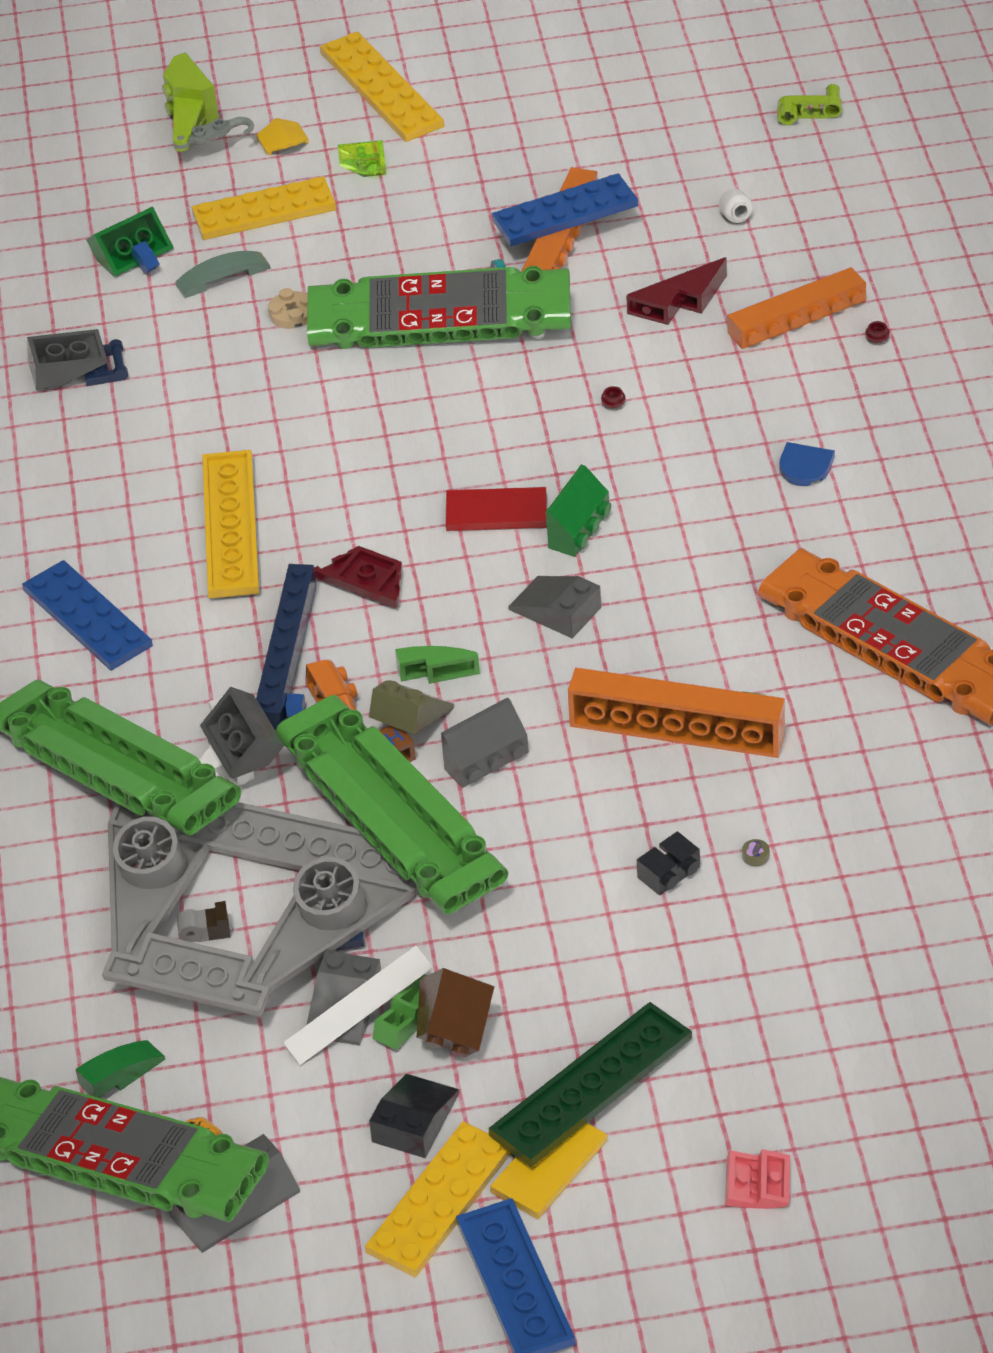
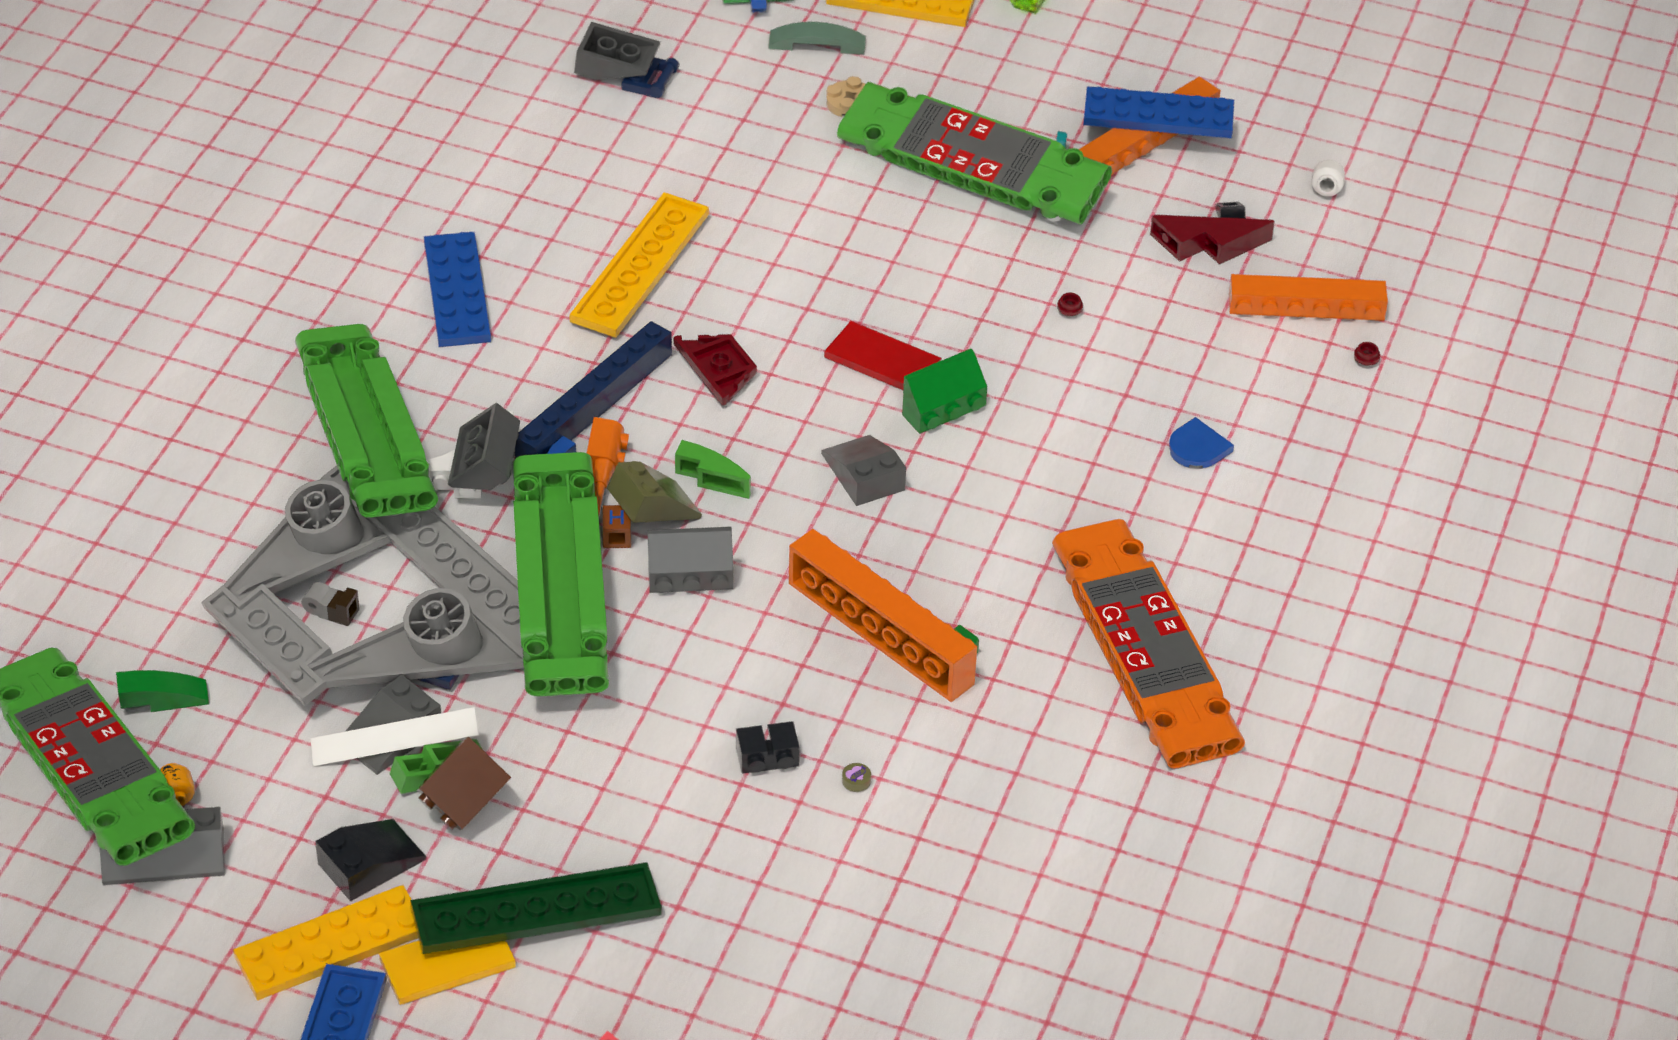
camera: 25 degrees right, 0 degrees up
(677, 265) = (1230, 210): none -> black slope
(796, 106) = (1465, 111): lime beam -> none

